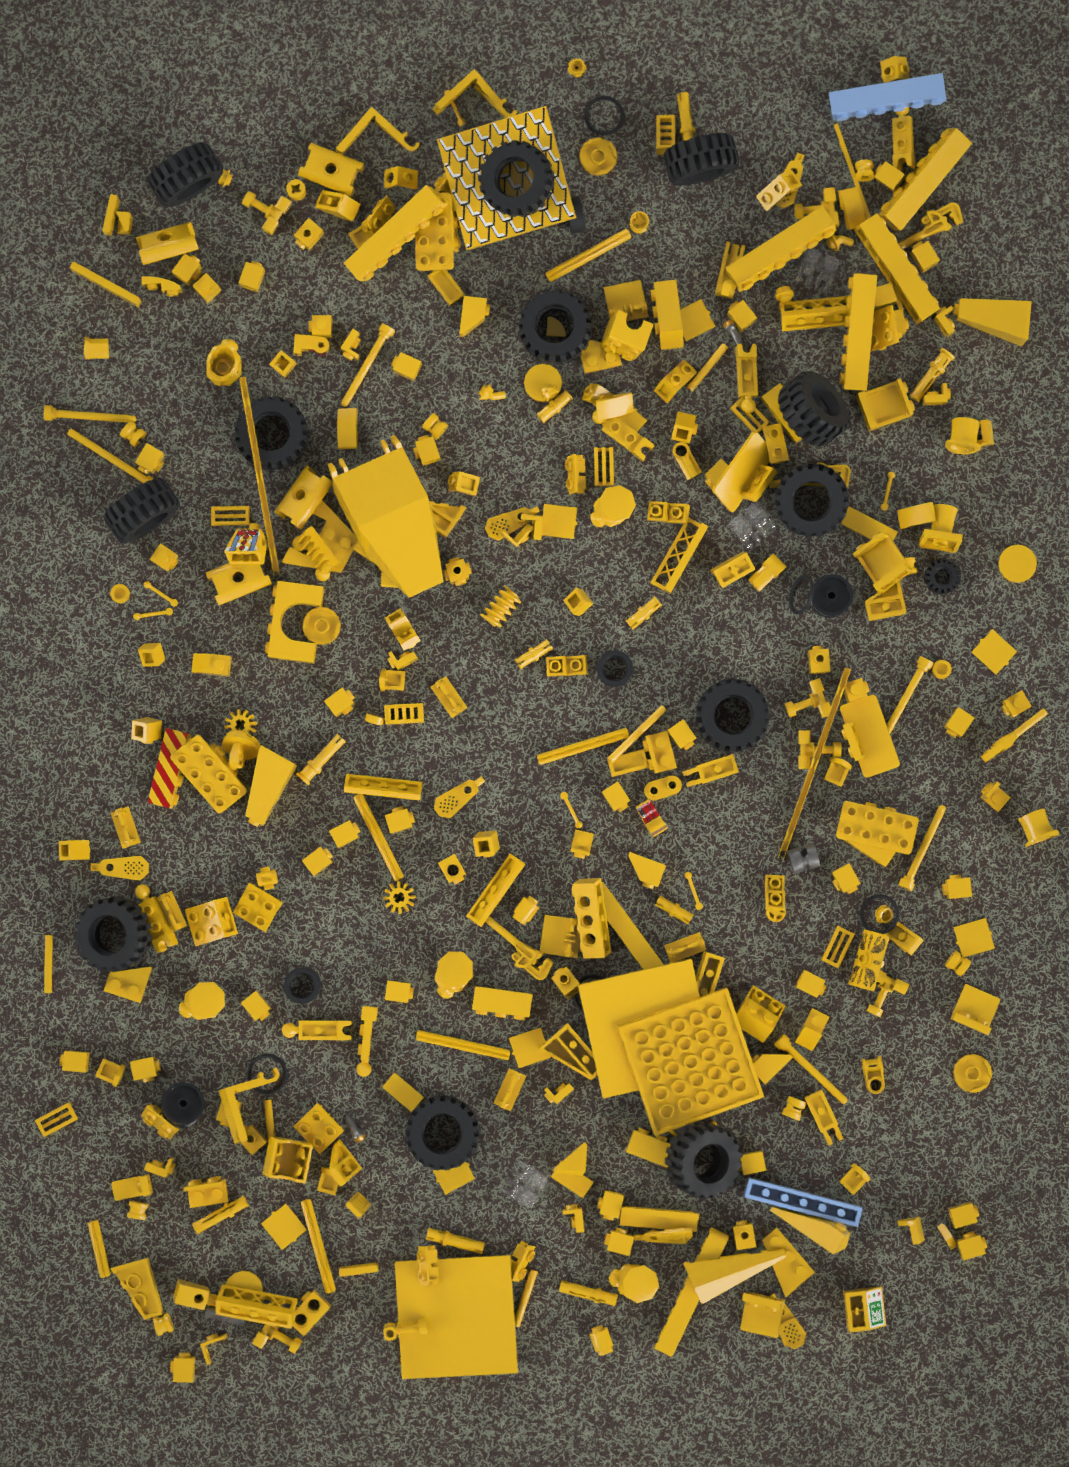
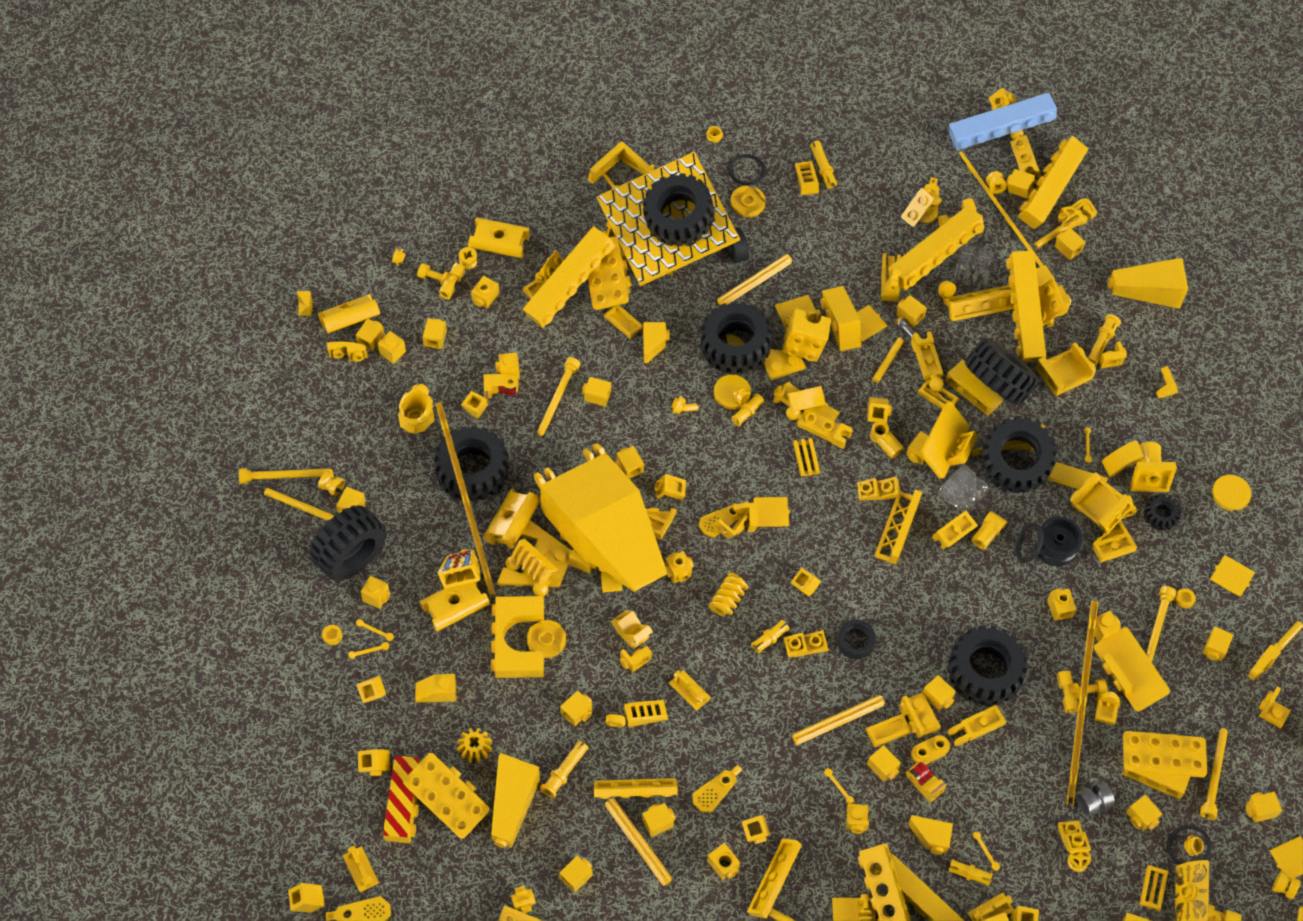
camera: 10 degrees left, 25 degrees down
(96, 348) = (287, 412): yellow tile -> none
(106, 284) = (291, 356): yellow tile -> none
(111, 214) = (291, 298): yellow tile -> none
(185, 174) = (360, 248): black tyre -> none
(230, 523) = (437, 548): yellow tile -> none
(240, 747) = (477, 763): yellow tile -> none
(337, 205) = (510, 265): yellow slope -> none
(345, 833) = (602, 840): yellow brick -> none
(347, 428) = (546, 452): yellow slope -> none
(351, 342) = (538, 380): yellow bracket -> none
(382, 123) = (540, 195): yellow hinge -> none
(391, 680) = (628, 681): yellow tile -> none
(401, 903) = (676, 906): yellow gear -> none
(402, 177) = (565, 235): yellow bracket -> none
(435, 426) = (631, 438): yellow wheel -> none
(526, 910) = (811, 894): yellow brick -> none
(574, 465) = (778, 459): yellow hinge -> none
(613, 507) = (823, 488): yellow piece -> none
(636, 734) = (892, 699): yellow bar -> none
(639, 218) = (797, 246): yellow wheel -> none
(643, 613) = (874, 583): yellow pin -> none
(675, 381) = (858, 373): yellow bracket -> none
(701, 159) = (846, 181): black tyre -> none
(775, 443) = (970, 413): yellow hinge -> none
(816, 699) = (1066, 641): yellow bar -> none
(834, 241) = (982, 242): yellow plate -> none
(852, 206) = (992, 211): yellow slope -> none
(897, 268) = (1065, 270): yellow brick -> none
(904, 938) = (1225, 866): yellow slope -> none
(945, 324) = (1102, 295): yellow bracket -> none
(964, 436) = (1149, 385): yellow piece -> none
(1015, 704) = (1268, 621): yellow bracket -> none

